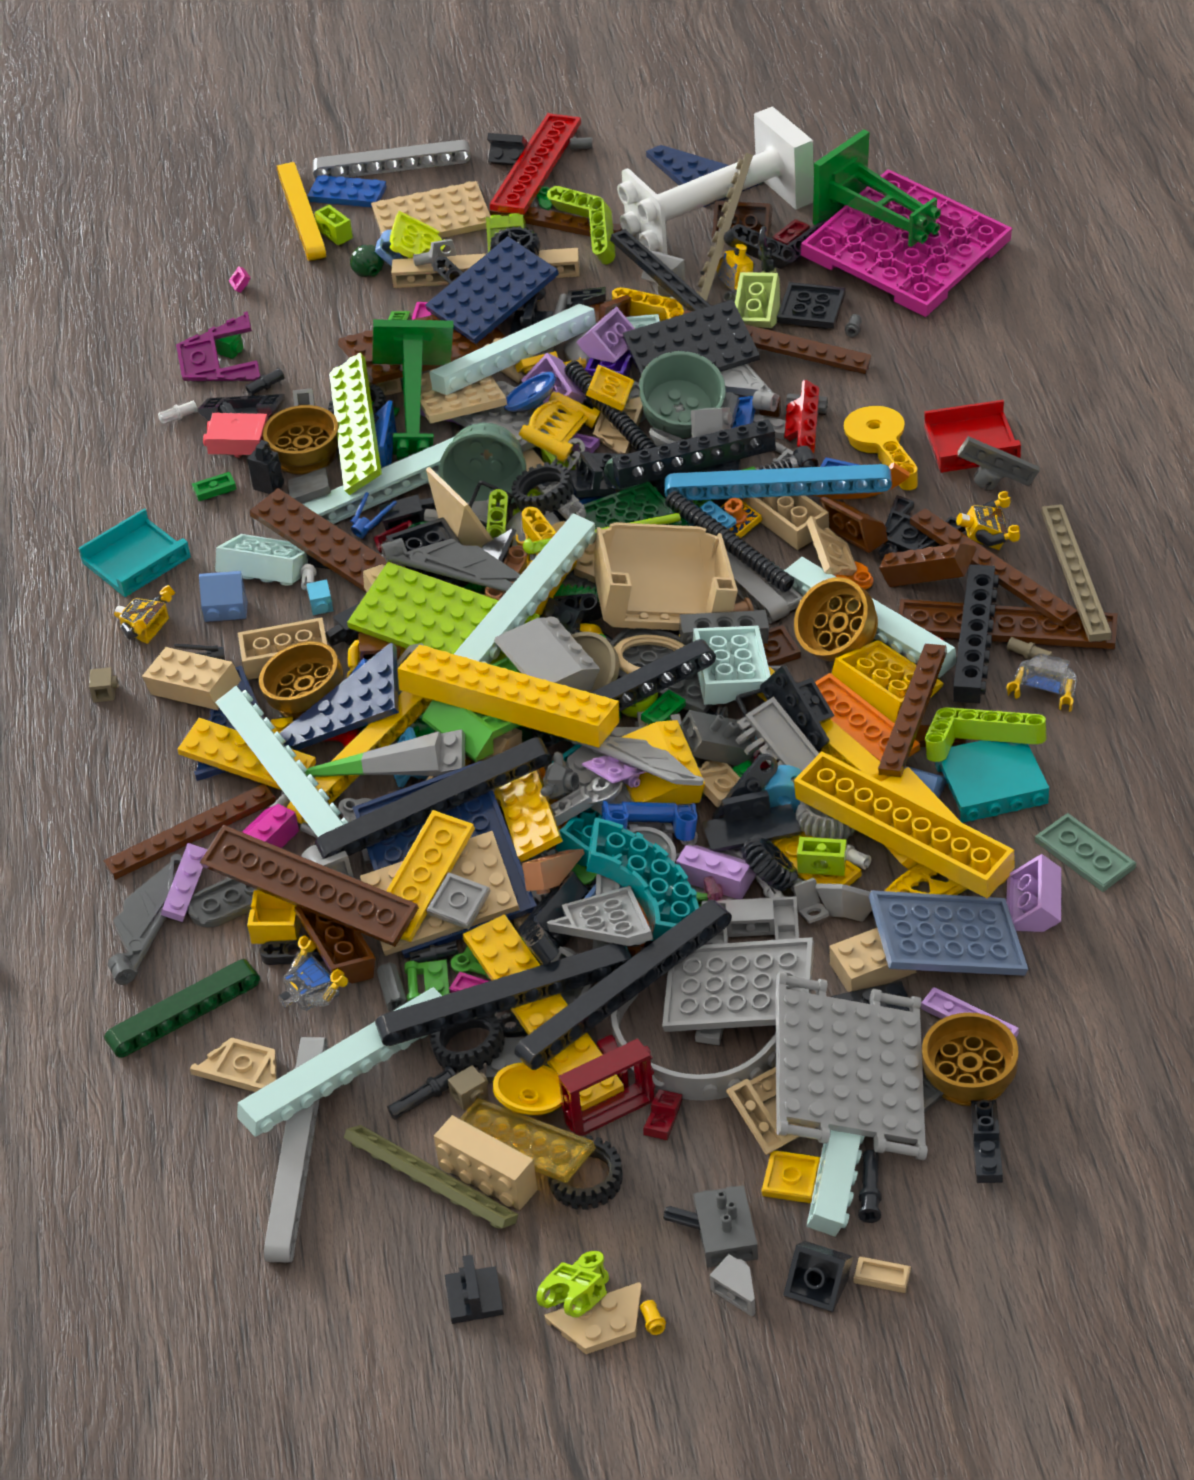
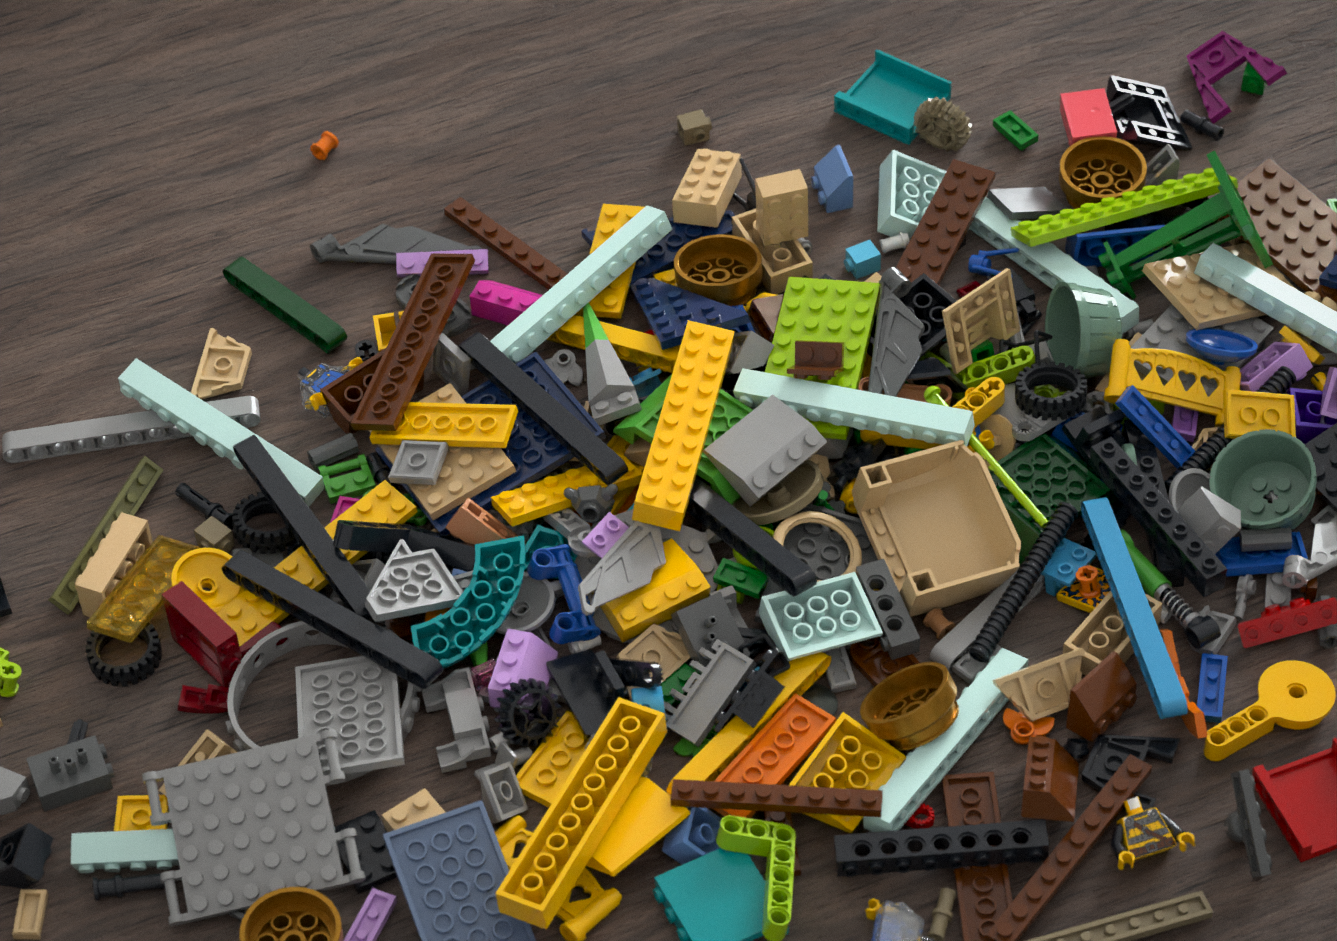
camera: 75 degrees right, 5 degrees up
(144, 617) = (793, 130): torso -> none
(177, 412) = (1127, 68): white axle -> none
(193, 519) = (942, 124): none -> dark tan gear
(265, 469) = (1039, 159): black hinge -> none
(272, 607) = (781, 207): none -> tan brick
(465, 608) = (818, 359): none -> reddish brown bracket
(600, 442) = (1154, 426): none -> blue plate
(822, 856) = (546, 757): lime brick -> none

